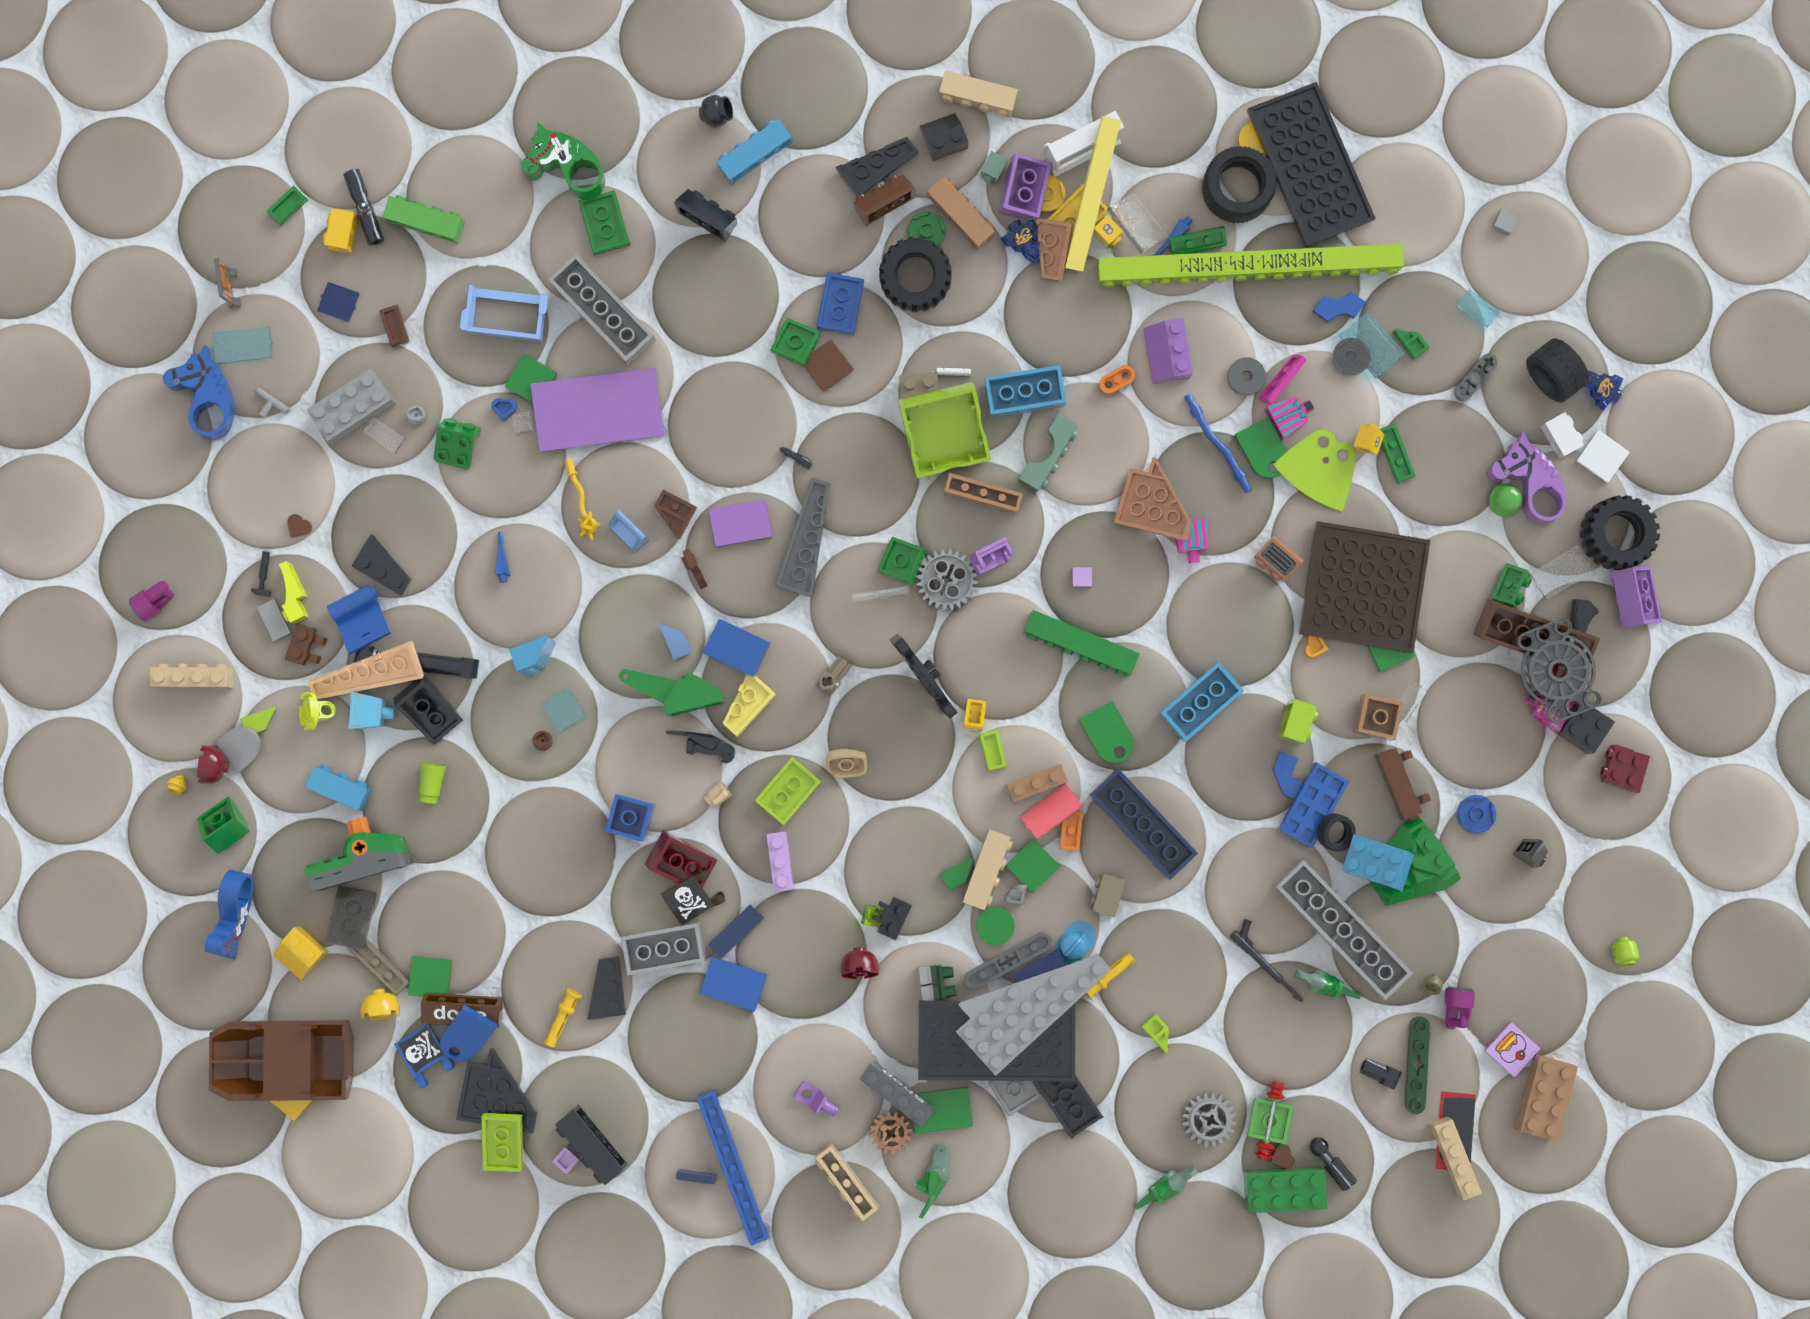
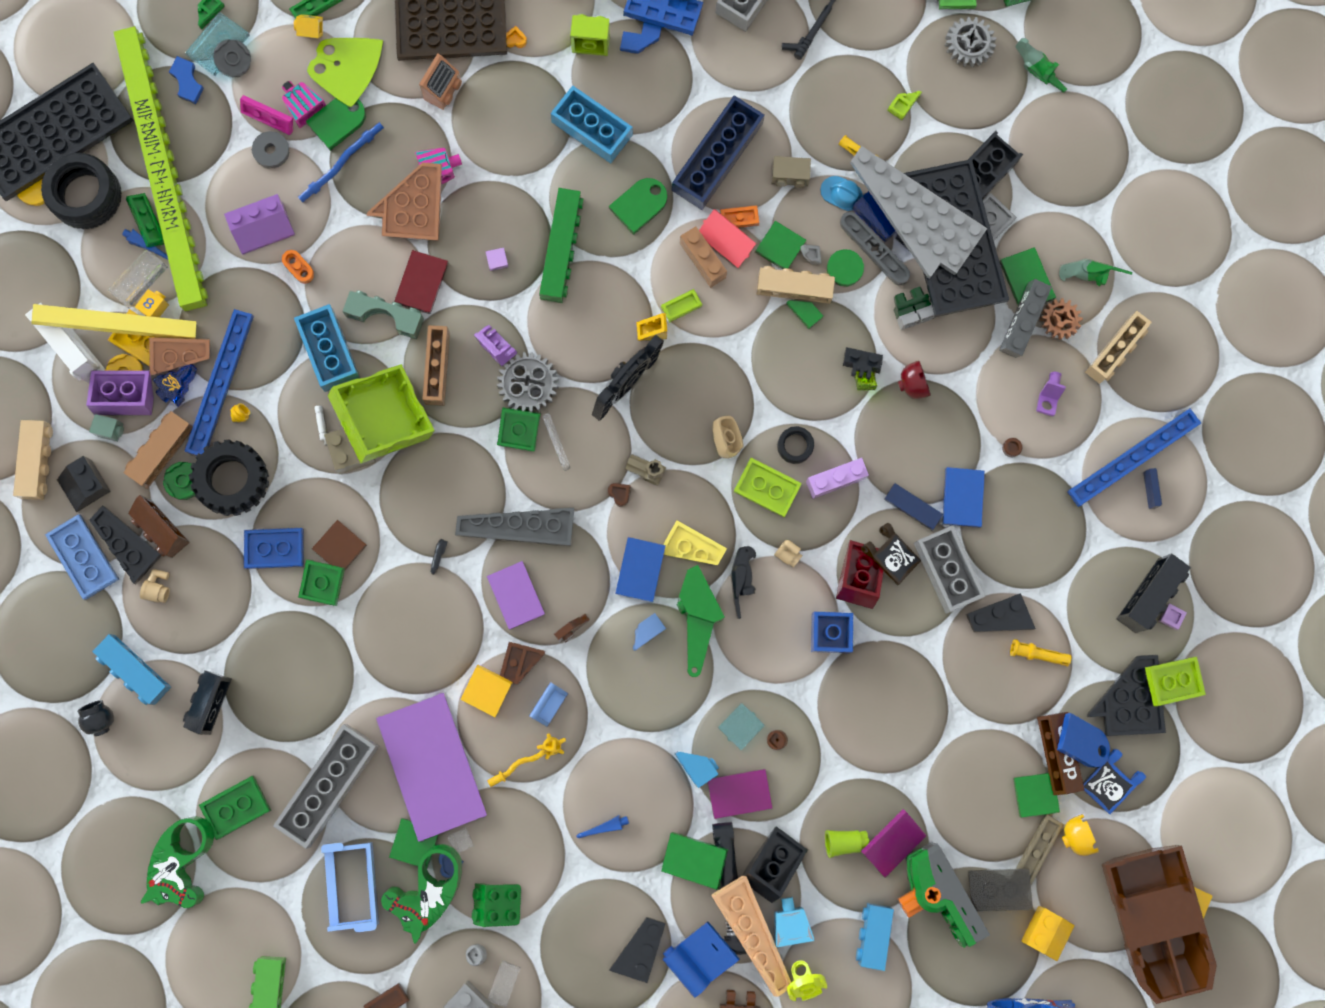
camera: 110 degrees left, 5 degrees down
(418, 826) = (893, 843): none -> magenta tile
(449, 634) = (694, 860): none -> green tile
(470, 378) = (424, 907): none -> green animal
(501, 693) = (739, 793): none -> magenta tile
(655, 475) = (486, 690): none -> yellow tile
(772, 1046) = (1012, 447): none -> reddish brown tile
(809, 826) = (781, 445): none -> black tyre
(816, 645) = (620, 493): none -> reddish brown tile
(824, 185) = (154, 591): none -> tan piece
(874, 124) = (82, 557): none -> medium blue tile
(980, 296) = (239, 413): none -> yellow plate
(1015, 282) = (219, 382): none -> blue plate
(1075, 497) = (421, 281): none -> dark red tile

